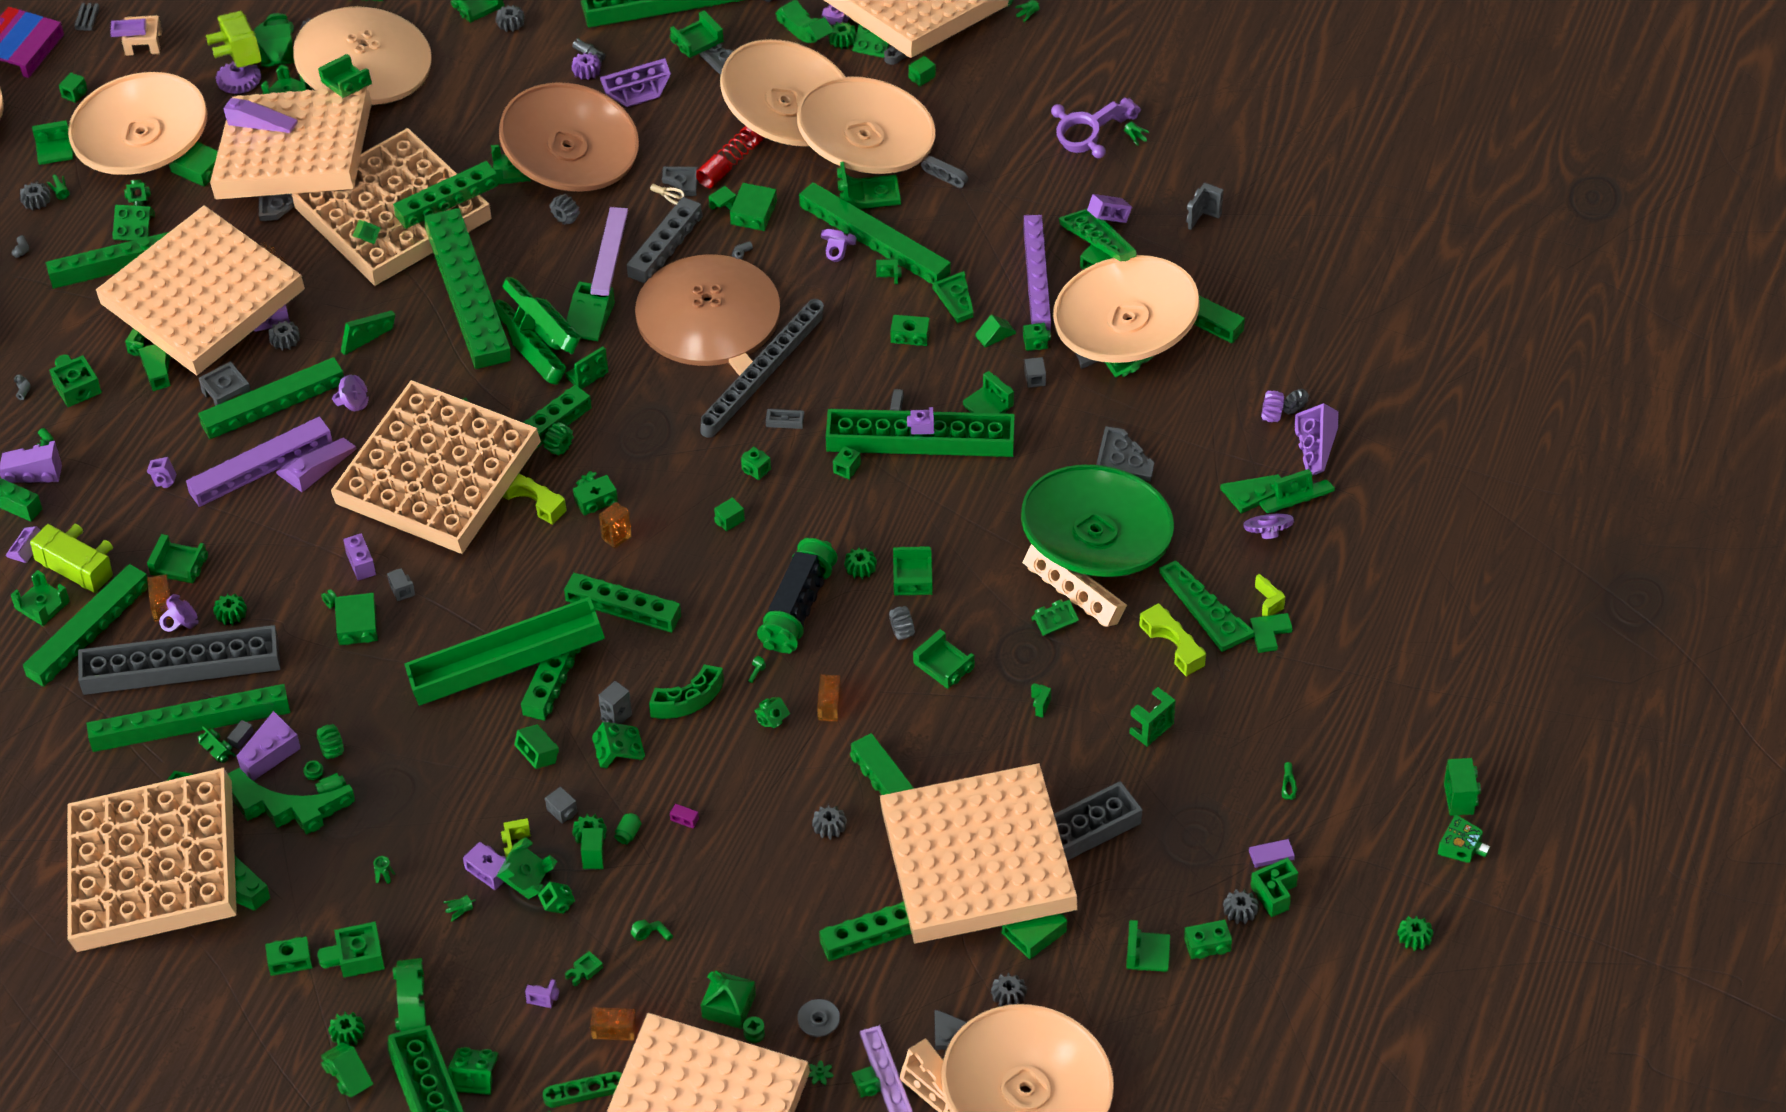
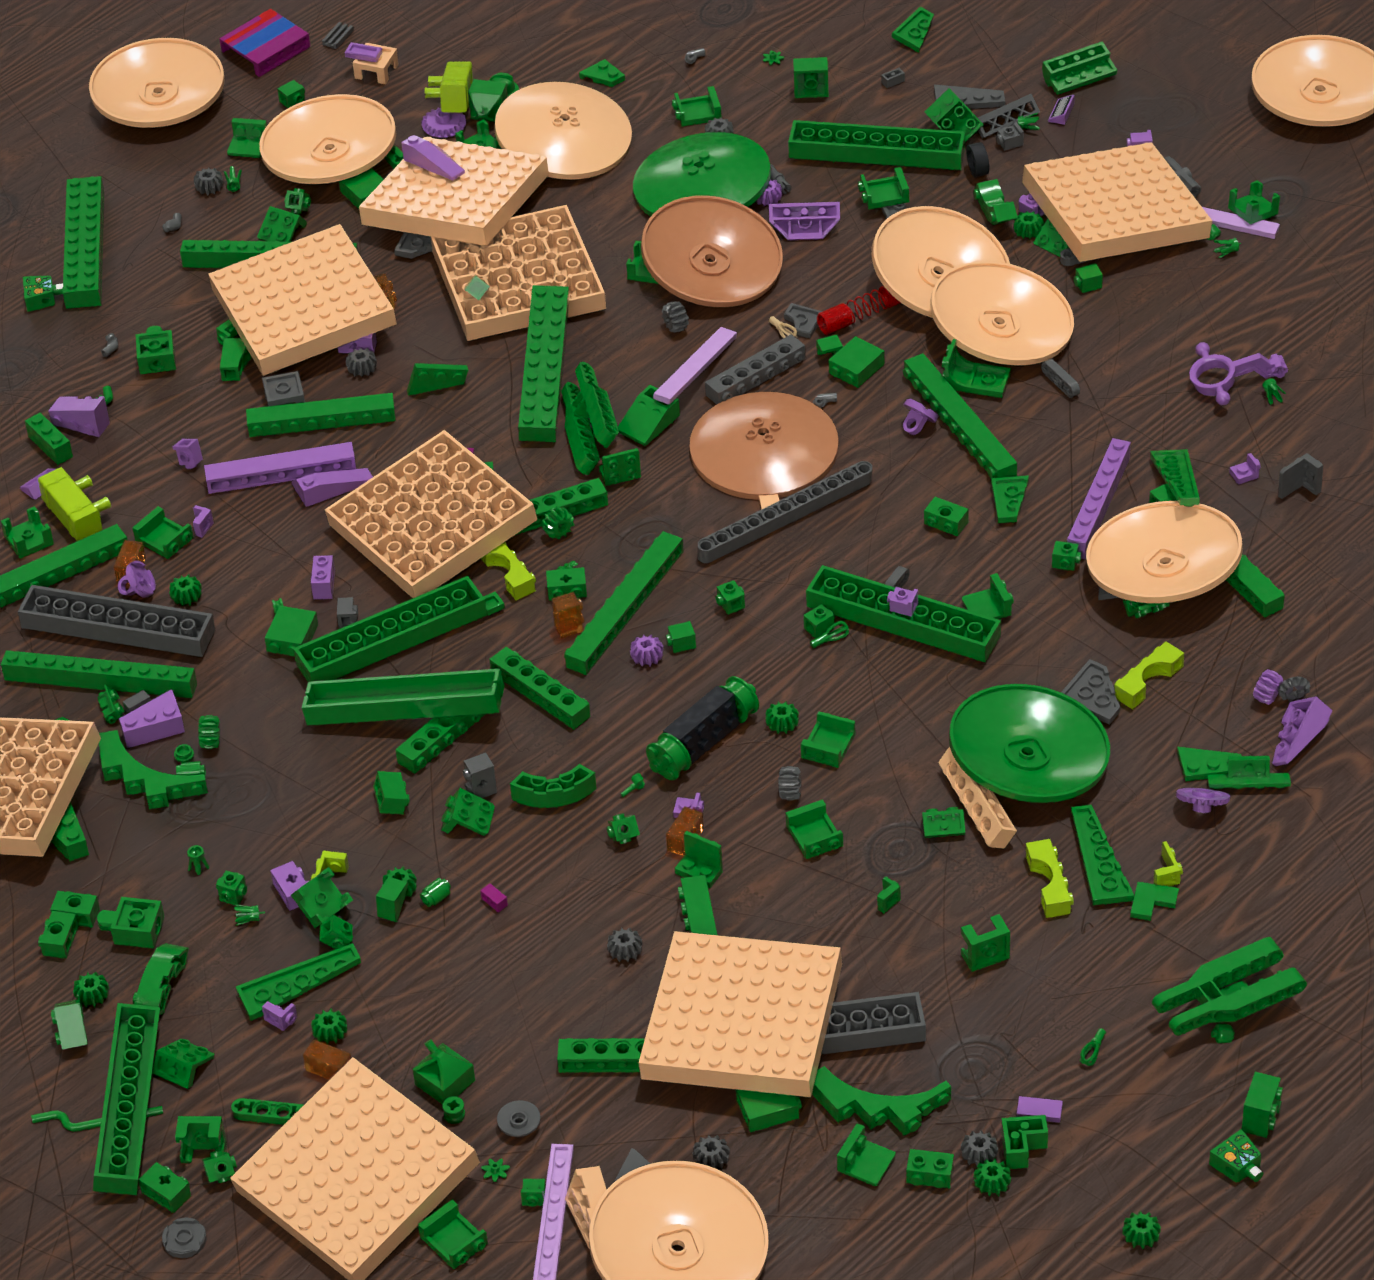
camera: 25 degrees right, 5 degrees down
(210, 535) = (202, 521): none -> medium lavender bracket
(213, 126) = (394, 156): none -> green beam
(285, 975) = (58, 934): none -> green brick
(343, 76) = (527, 141): green panel -> none
(351, 393) = (393, 429): medium lavender tile -> none
(432, 886) = (231, 887): none -> green brick
(446, 194) = (567, 272): green brick -> none
(453, 591) = (390, 631): none -> green brick
(490, 77) = (728, 169): none -> green dish
(533, 534) = (493, 603): none -> green plate
(538, 956) = (295, 980): none -> green wing
(561, 805) = (386, 852): dark grey brick -> none
(585, 967) = (333, 1000): green plate -> none
(595, 989) = (329, 1026): none -> green gear
(642, 929) = (400, 987): green plate -> none
(658, 498) = (623, 603): none -> green brick
(703, 536) = (646, 650): none -> medium lavender gear
(785, 419) = (782, 566): dark grey tile -> none
(813, 673) = (695, 804): none -> medium lavender bracket
(857, 718) = (700, 858): none -> green bracket
(858, 475) = (826, 637): none -> green piece
(888, 268) = (955, 453): green bracket -> none
(994, 330) = (1030, 539): green slope -> none
(1035, 372) = (1047, 589): dark grey brick -> none
(1109, 208) = (1203, 454): medium lavender brick -> none
(1150, 212) = (1246, 471): none -> medium lavender bracket
(1157, 895) = (874, 1109): none -> green arch
(1169, 409) = (1163, 661): none -> lime arch
(1265, 929) = (992, 1177): none -> green gear
(1390, 700) = (1237, 999): none -> green beam
(1390, 732) = (1223, 1033): none -> green piece

